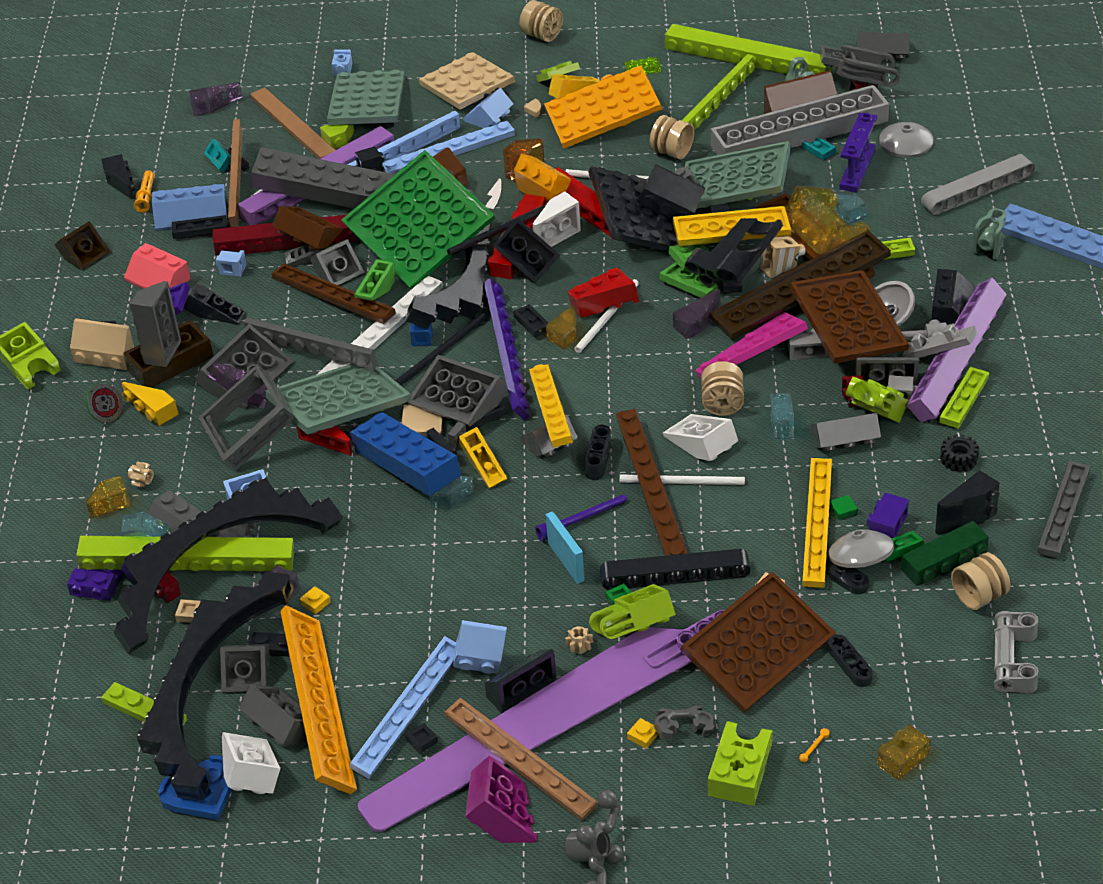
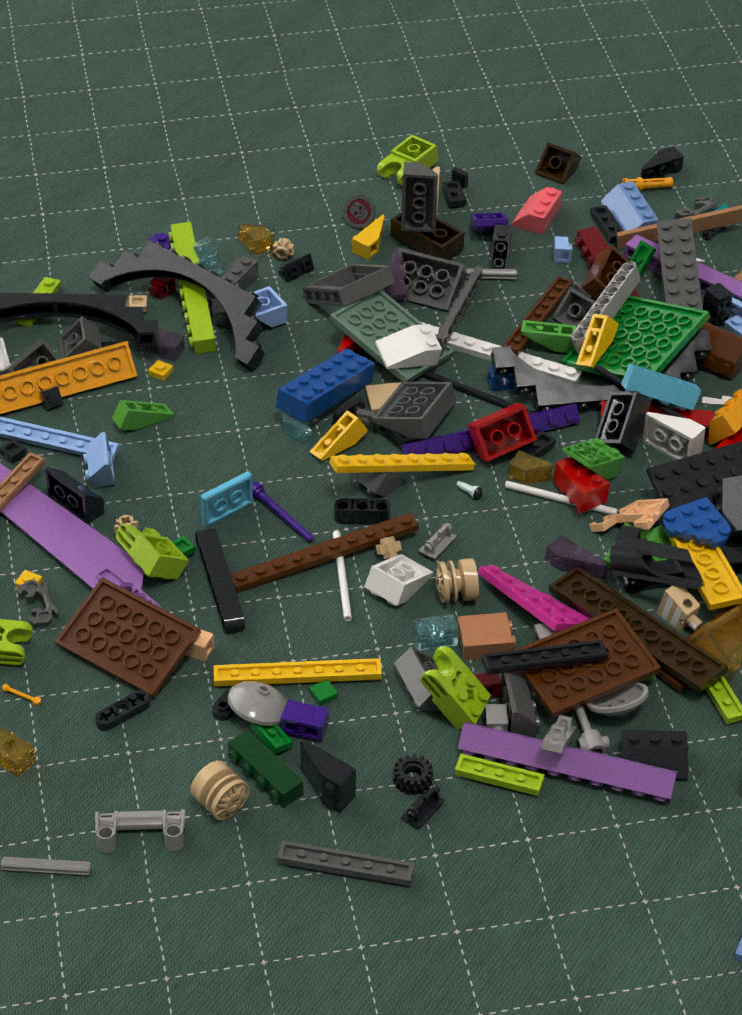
camera: 75 degrees right, 0 degrees up
(68, 321) = (462, 176): none -> black tile
(175, 471) = (297, 268): none -> black hinge
(207, 173) = (703, 205): none -> dark grey helmet
(250, 312) = (496, 273): none -> light grey axle
(274, 200) = (642, 256): none -> green plate
(340, 696) = (51, 397): none -> black plate
(358, 224) = (610, 300): none -> light grey beam
(371, 379) = (410, 347): none -> white slope
(395, 618) = (136, 415): none -> bright green slope
(413, 245) = (597, 339): none -> yellow slope
(505, 207) = (661, 387): none -> medium azure brick
(522, 330) = (502, 432): none -> red brick
(570, 274) = (597, 457): none -> bright green slope
(584, 371) = (475, 491): none -> light aqua piece
(652, 404) = (438, 542): none -> light grey hinge
(653, 257) = (640, 513): none -> light nougat wing
(657, 436) = (388, 547): none -> tan gear
(690, 217) = (697, 522): none -> blue plate
(793, 379) = (484, 635): none -> nougat brick
(852, 332) = (544, 657): none -> black tile
(999, 452) = (423, 807): none -> black hinge
(1056, 730) = (46, 865): none -> light grey axle

